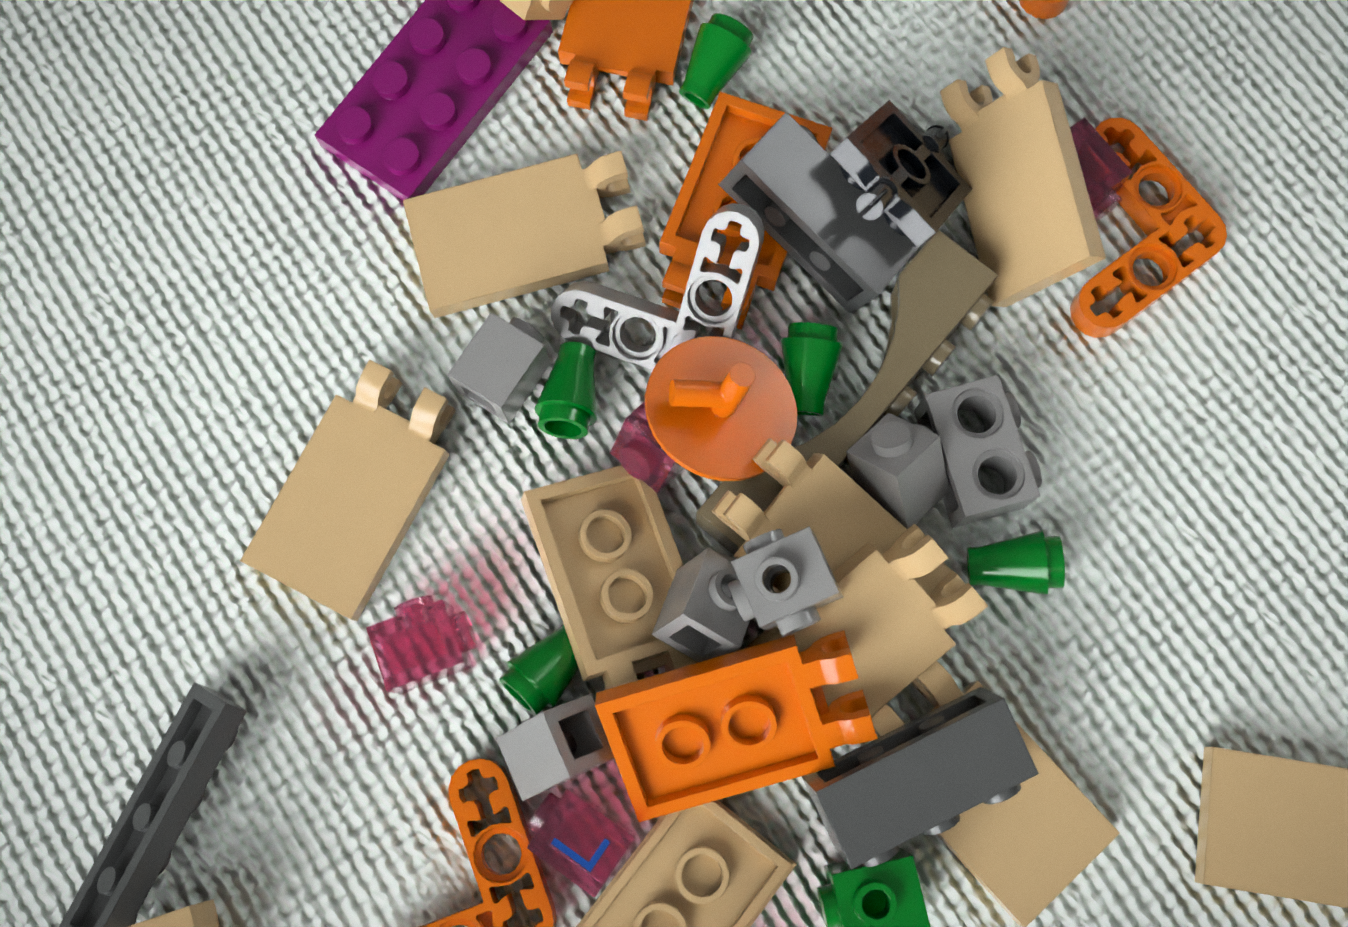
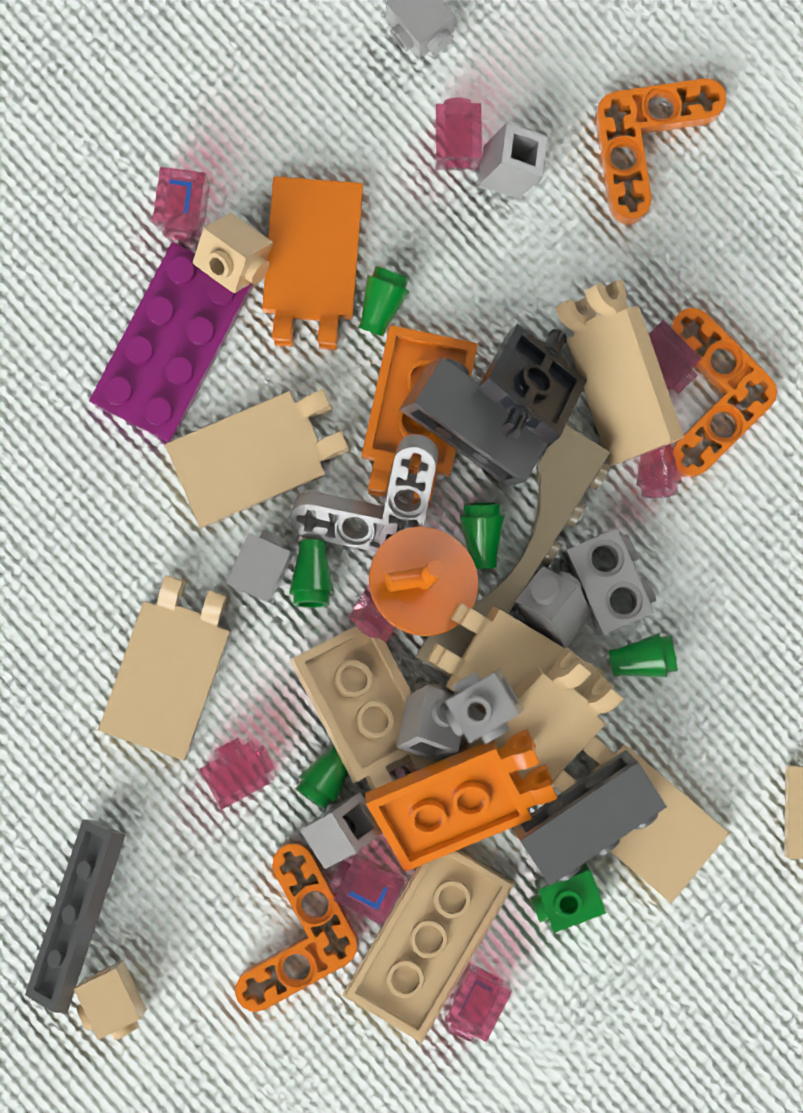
camera: 10 degrees left, 10 degrees up
(1058, 319) = (658, 473): none -> clear pink cone

